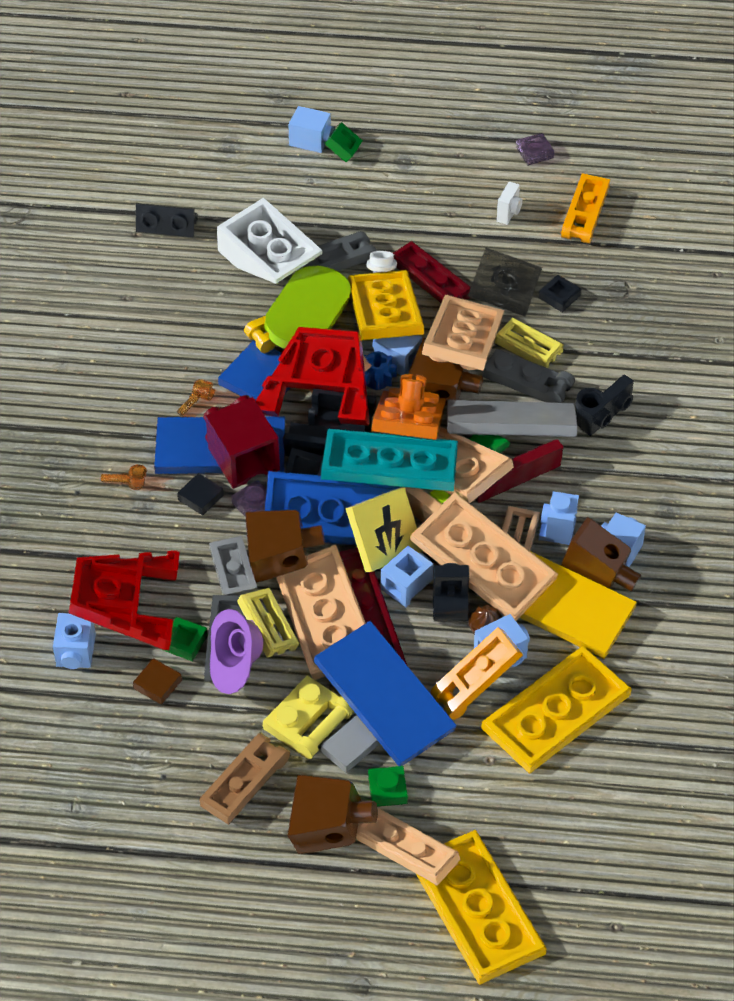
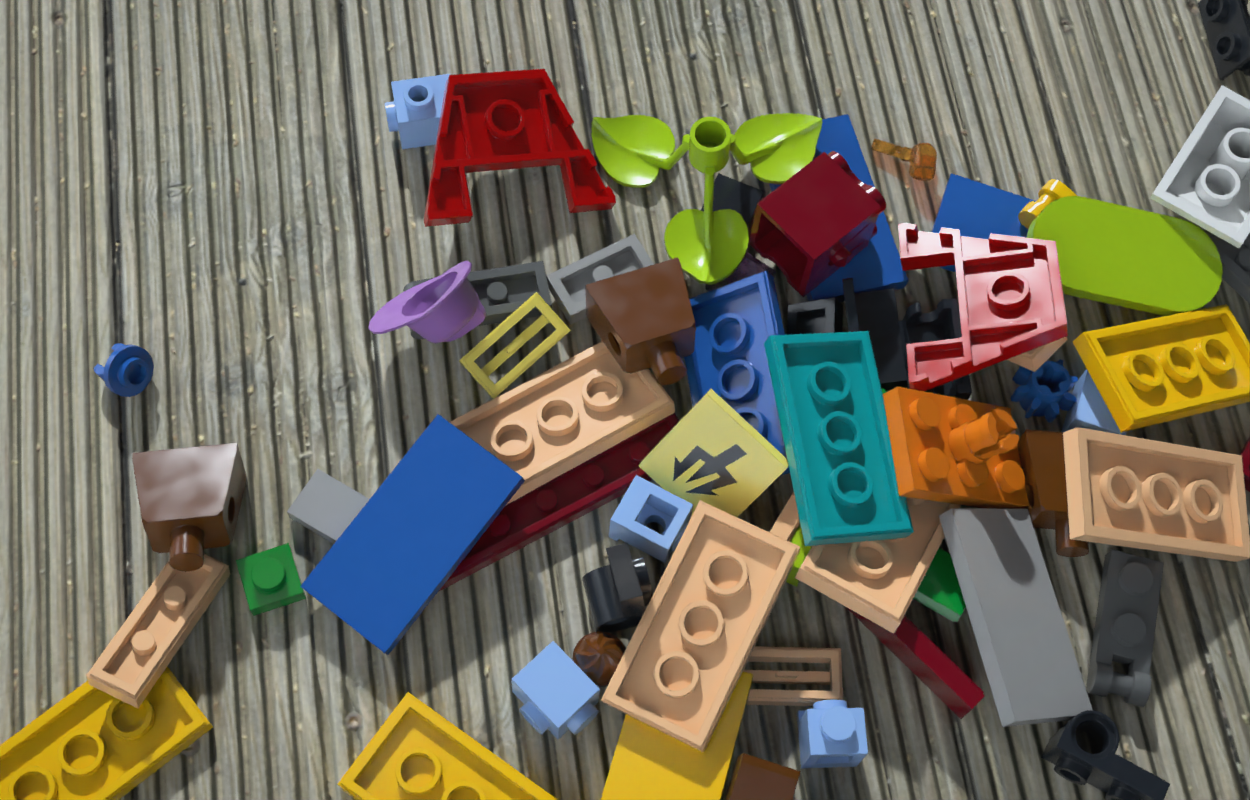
camera: 70 degrees right, 15 degrees up
(134, 478) = (731, 104): clear orange hand -> none
(157, 681) = (389, 232): reddish brown tile -> none
(174, 459) = (705, 241): none -> lime plant
(186, 638) = (462, 243): green plate -> none
(219, 844) = (126, 370): none -> blue plate
(243, 778) = (244, 380): medium nougat plate -> none
(300, 711) = (367, 424): light yellow plate -> none
(476, 672) = (475, 662): light orange plate -> none
(525, 346) = (1188, 653): light yellow tile -> none

